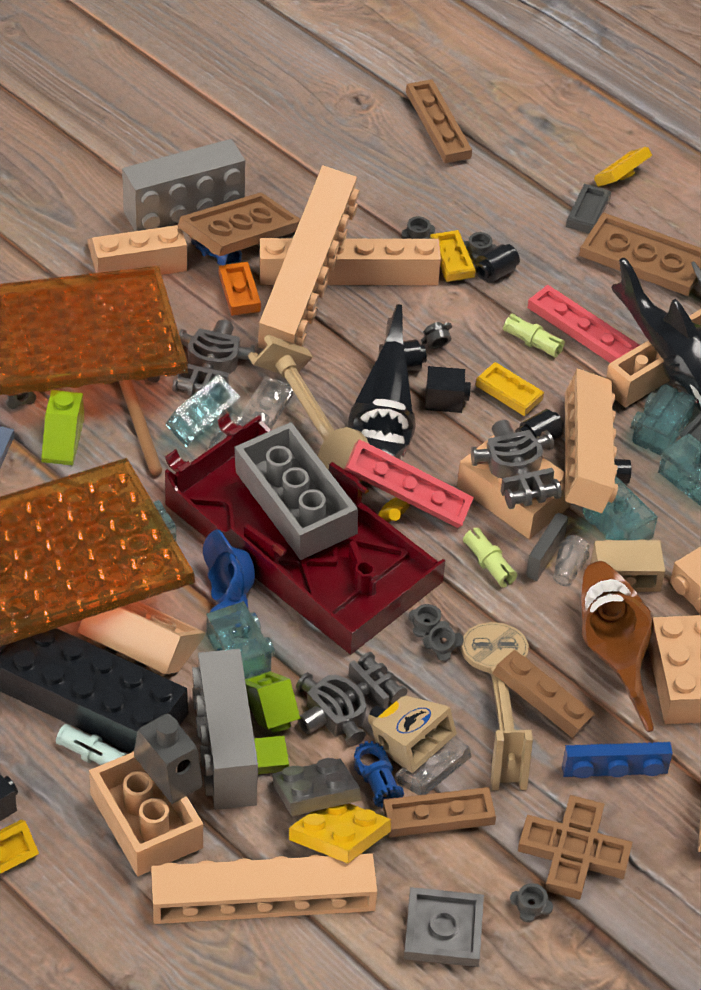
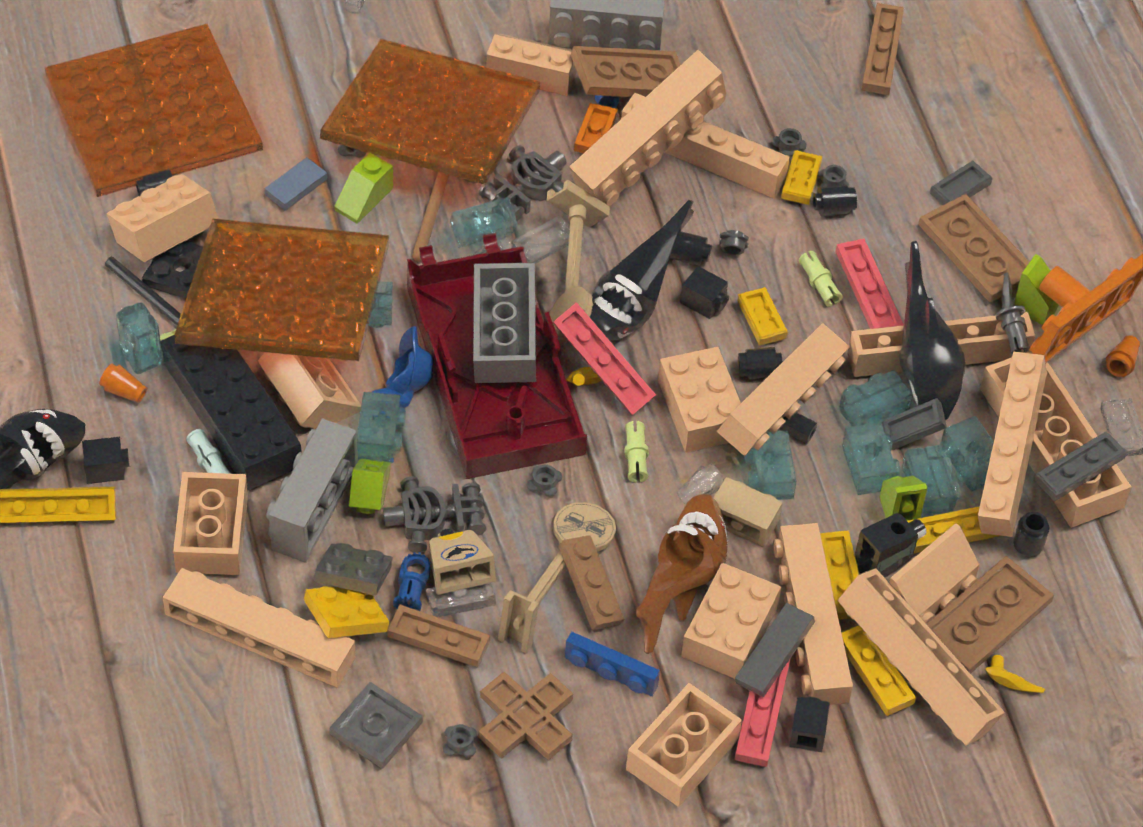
camera: 30 degrees right, 5 degrees up
(161, 749) = (237, 480): dark grey torso -> none
(271, 754) = (341, 527): lime tile -> none
(441, 631) = (541, 494): dark grey plate -> none
(516, 461) = (702, 378): flat silver piece -> none
(546, 546) = (686, 464): dark grey tile -> none
(623, 166) = (1019, 160): yellow plate -> none

